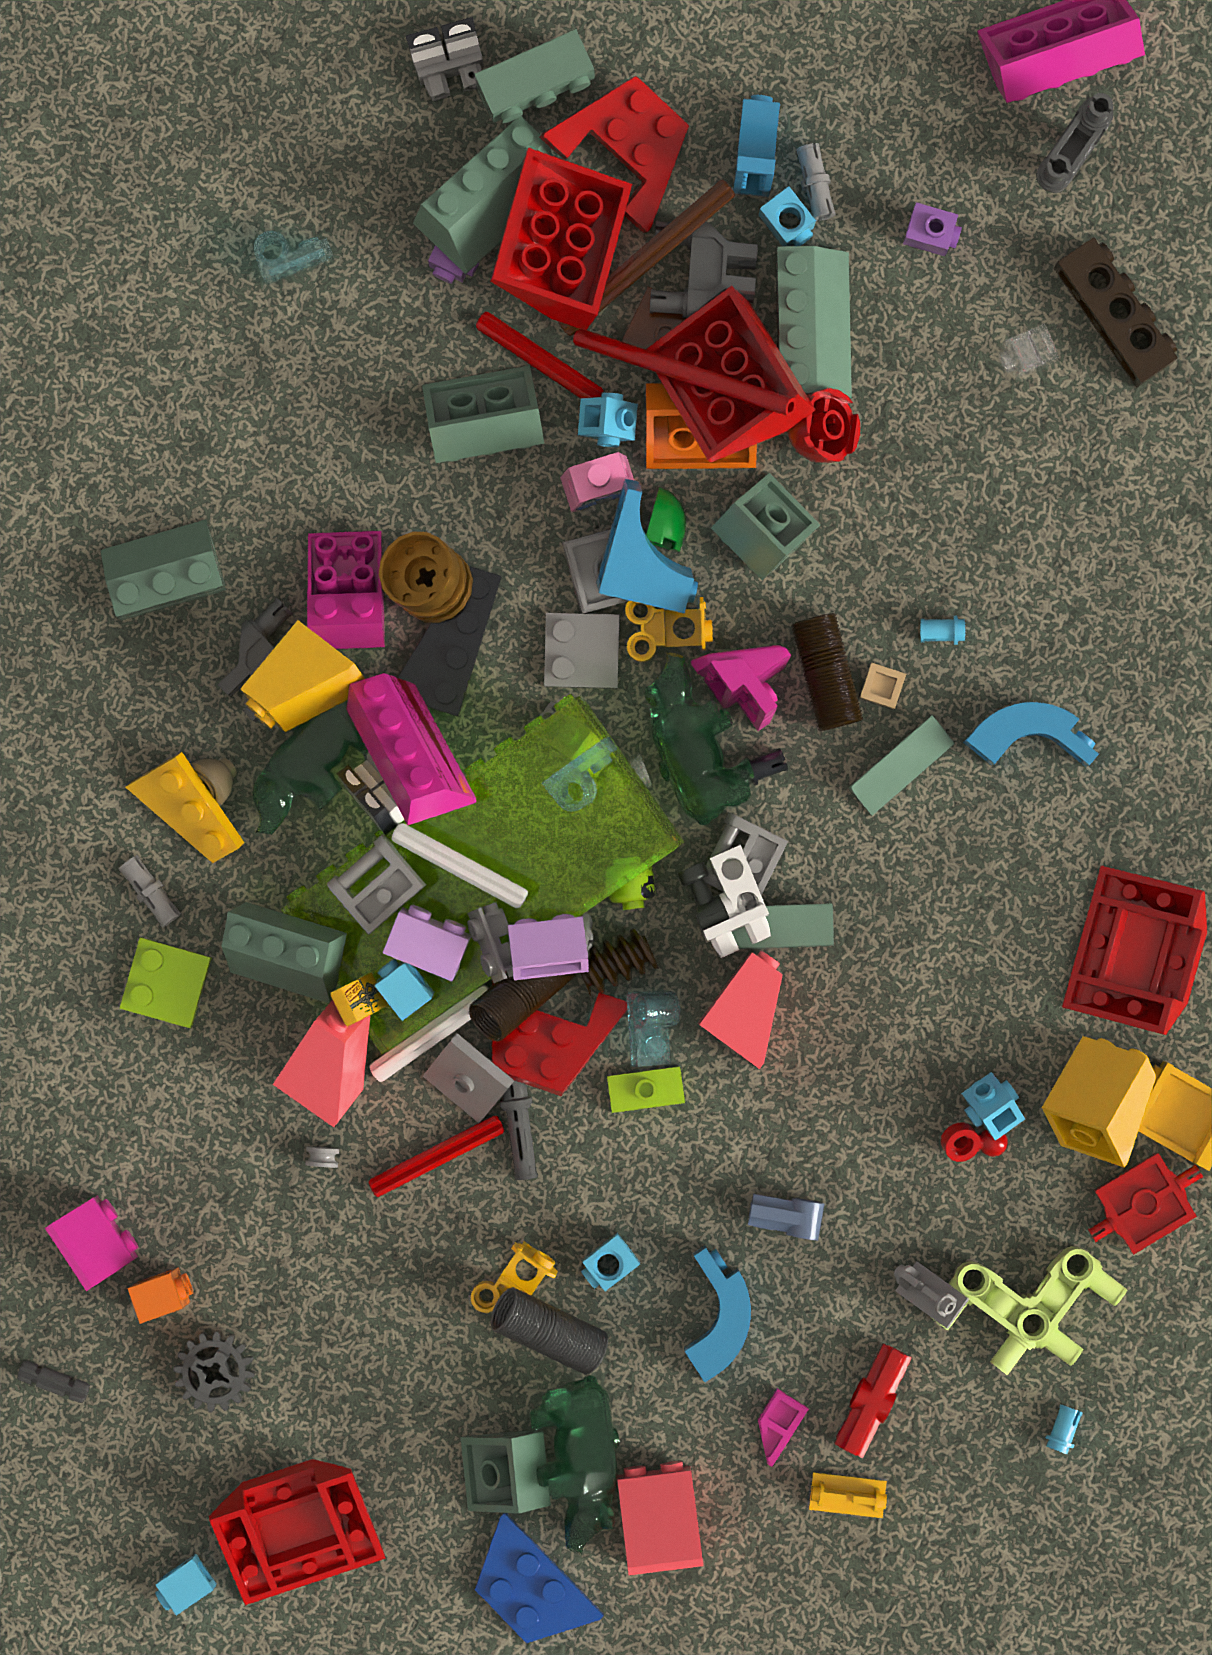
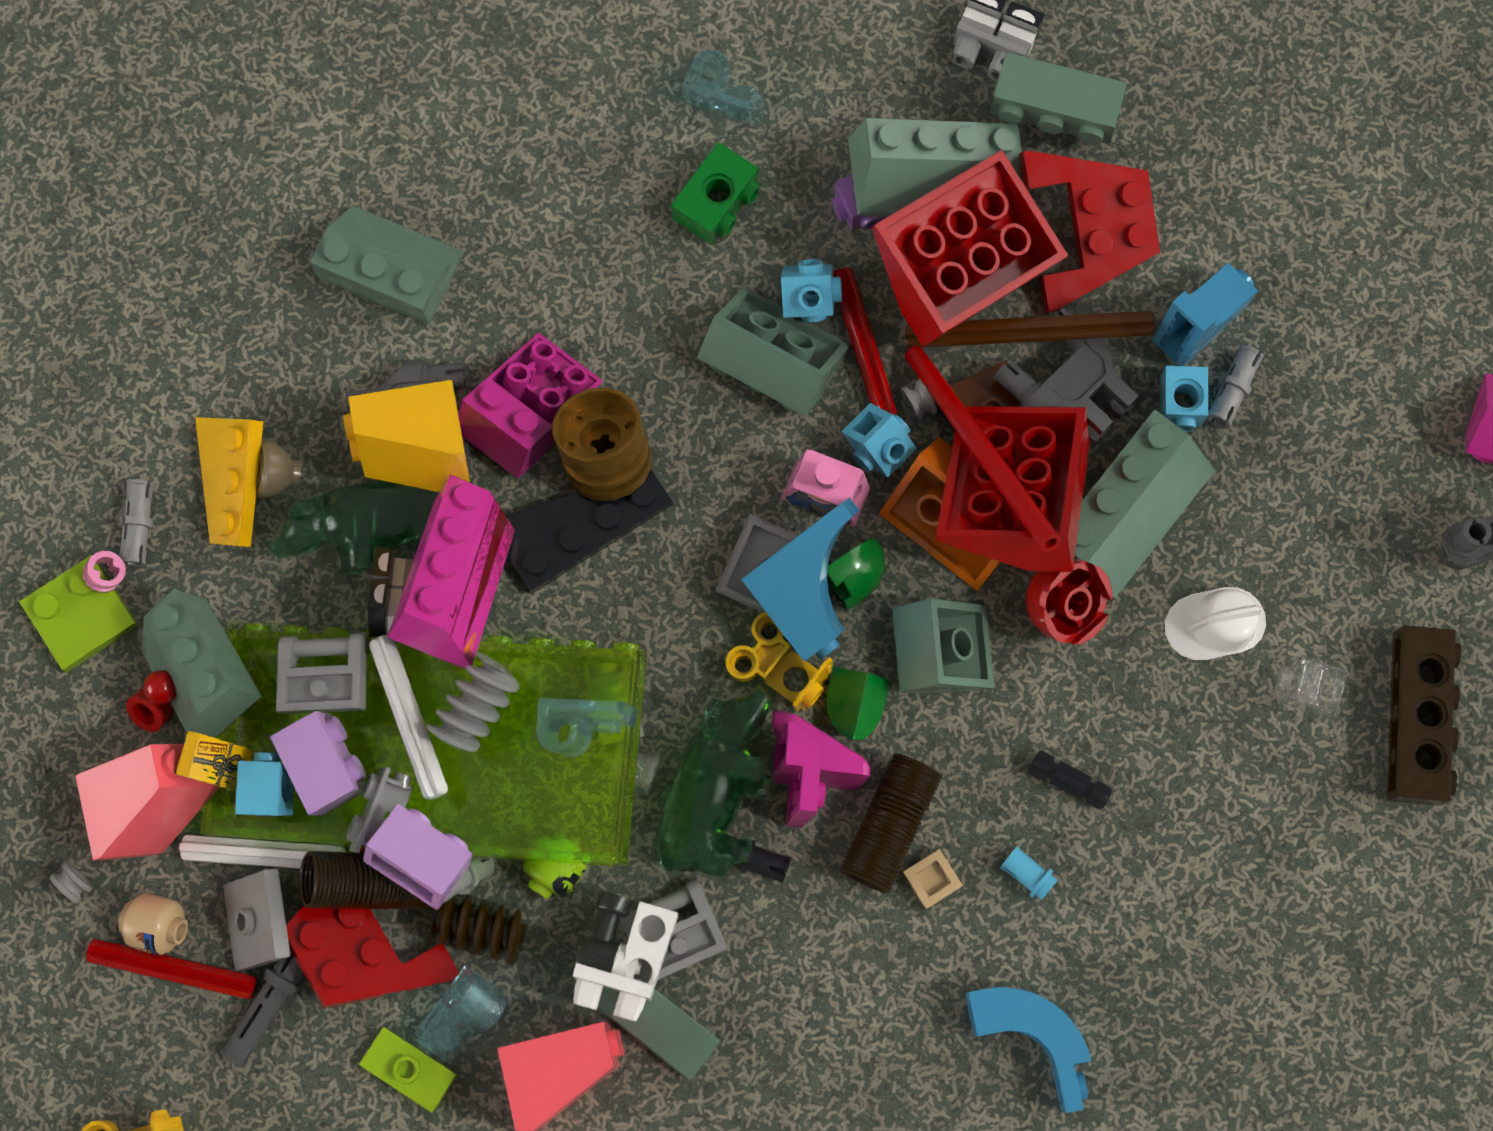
camera: 45 degrees right, 10 degrees down
(159, 950) = (92, 576): none -> bright pink bush
(273, 1000) = (151, 704): none -> red plate
(341, 314) = (723, 172): none -> green brick
(400, 1137) = (153, 924): none -> tan head
(473, 352) = (810, 290): none -> medium azure brick
(501, 821) = (475, 704): none -> light grey piece
(581, 650) = (687, 624): light grey plate -> none
(610, 368) = (918, 400): none -> light grey bush
(737, 611) = (856, 702): none -> green brick
(901, 765) = (890, 966): sand green slope -> none
(919, 545) = (1070, 780): none -> black axle
(931, 359) = (1215, 623): none -> white piece
(932, 229) = (1308, 508): medium lavender brick -> none

